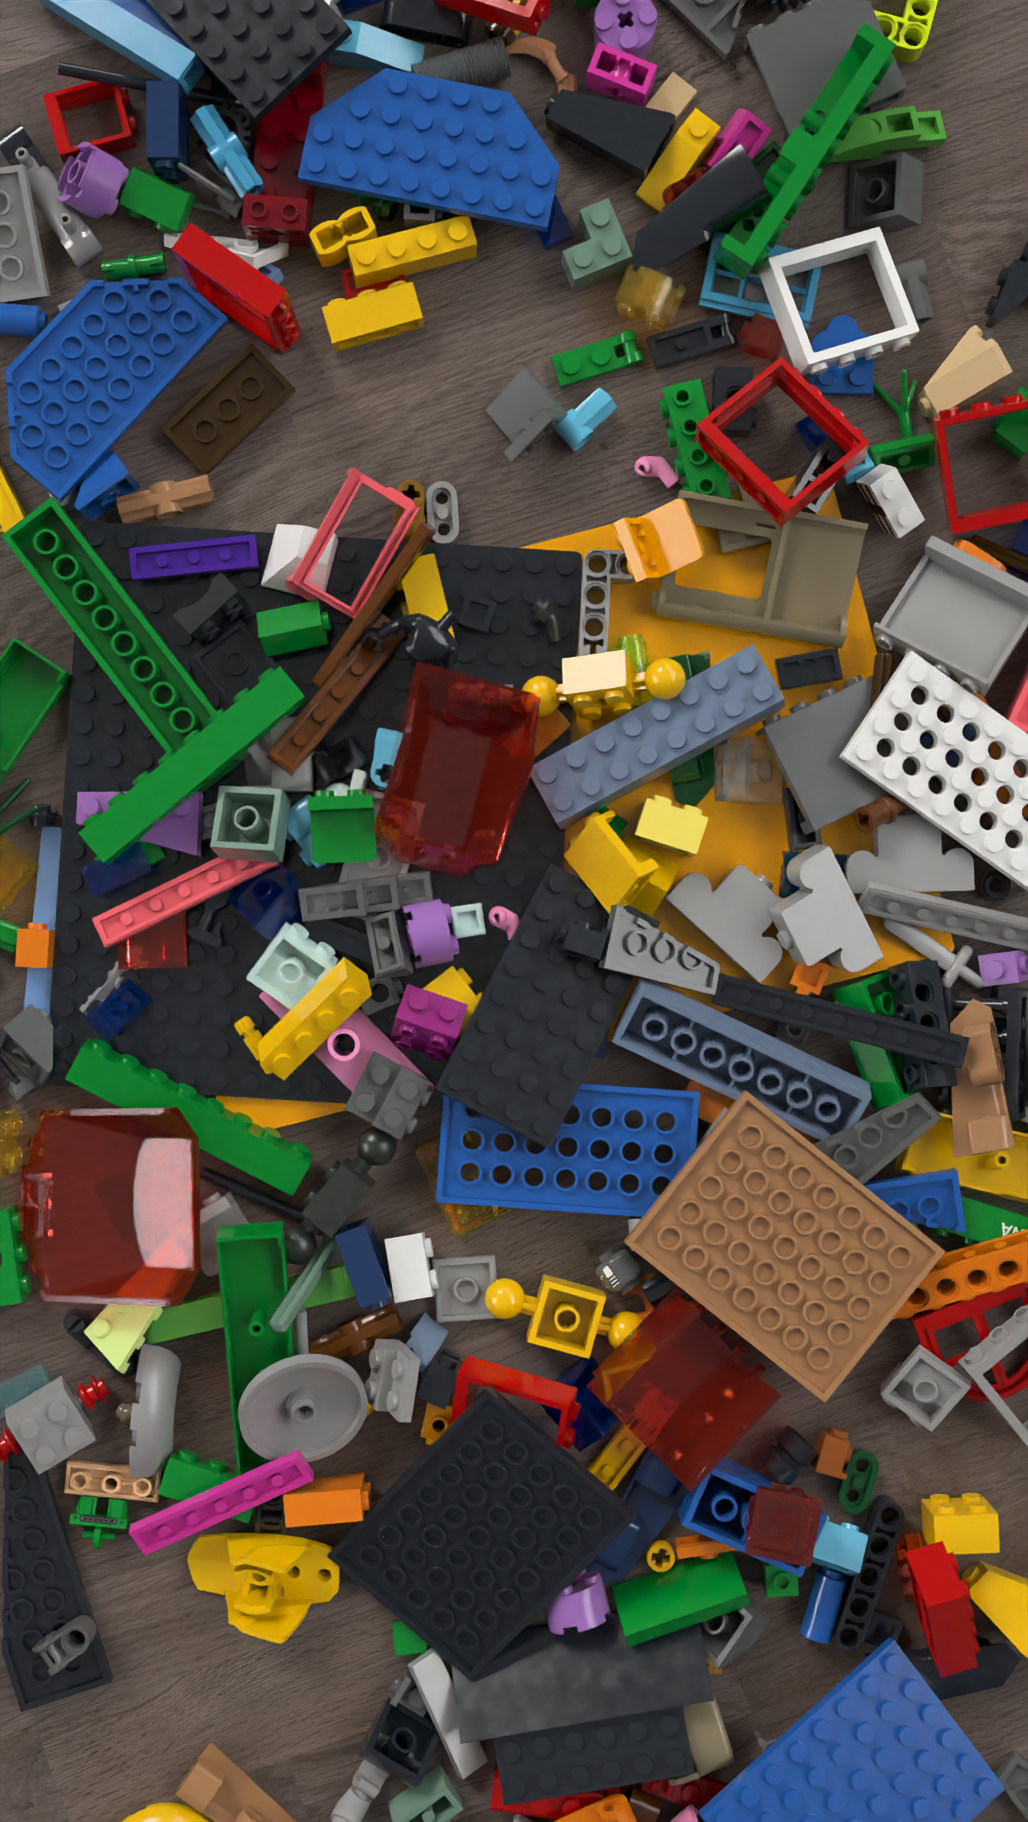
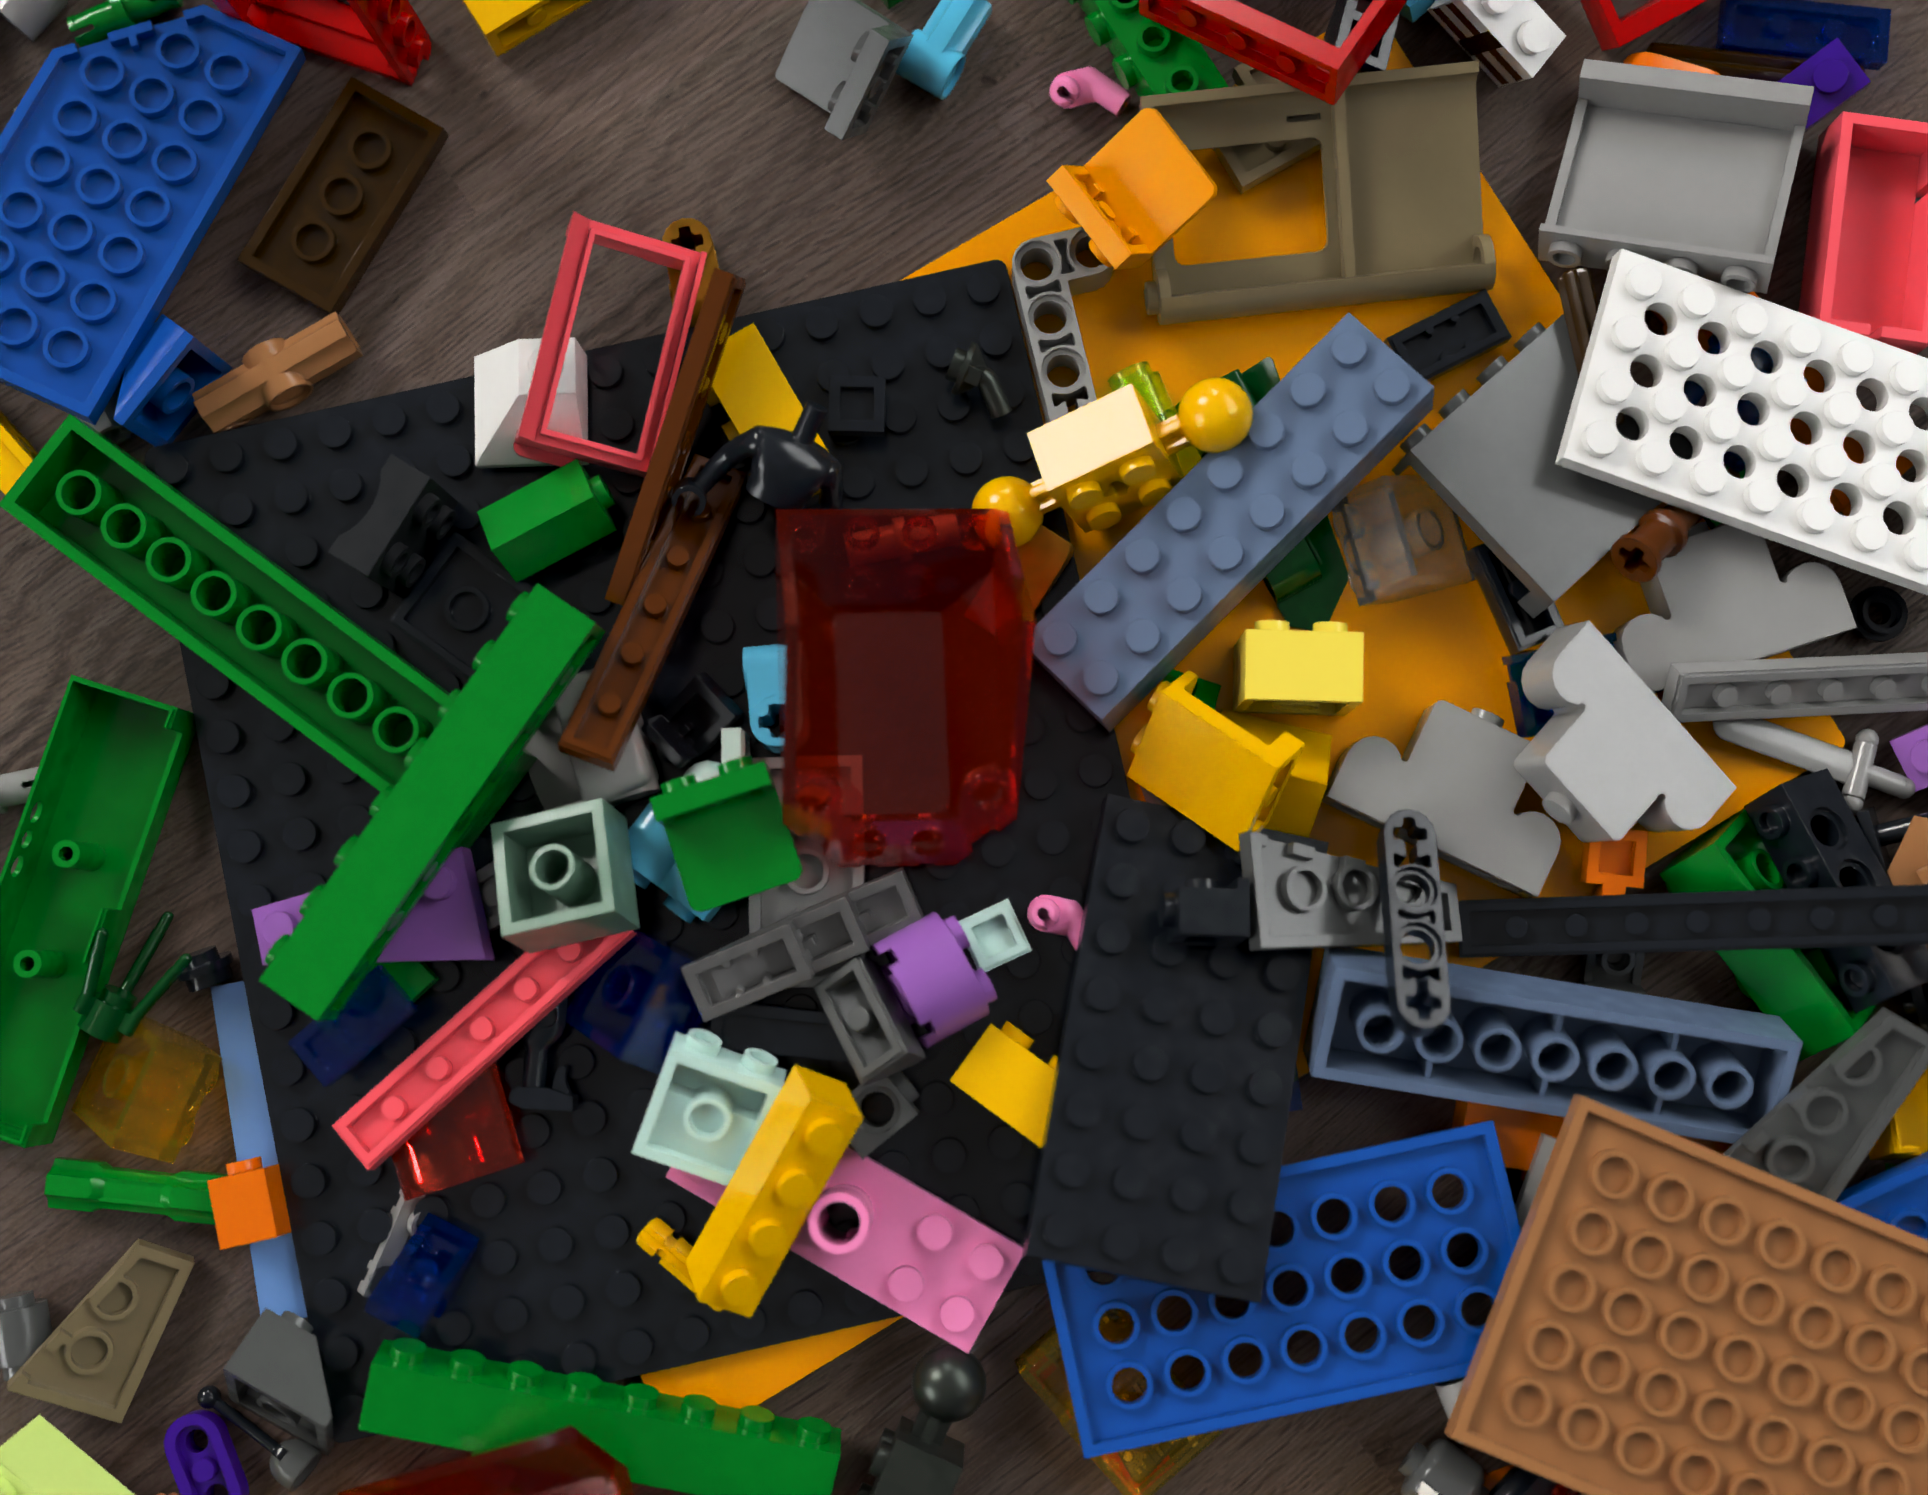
camera: 10 degrees left, 5 degrees down
(194, 558) = (346, 452): dark purple plate -> none
(389, 1096) = (947, 1290): dark grey plate -> none
(427, 1023) = (977, 1138): magenta bracket -> none
(443, 514) = (755, 264): light grey plate -> none
(686, 976) = (1419, 921): none -> black beam

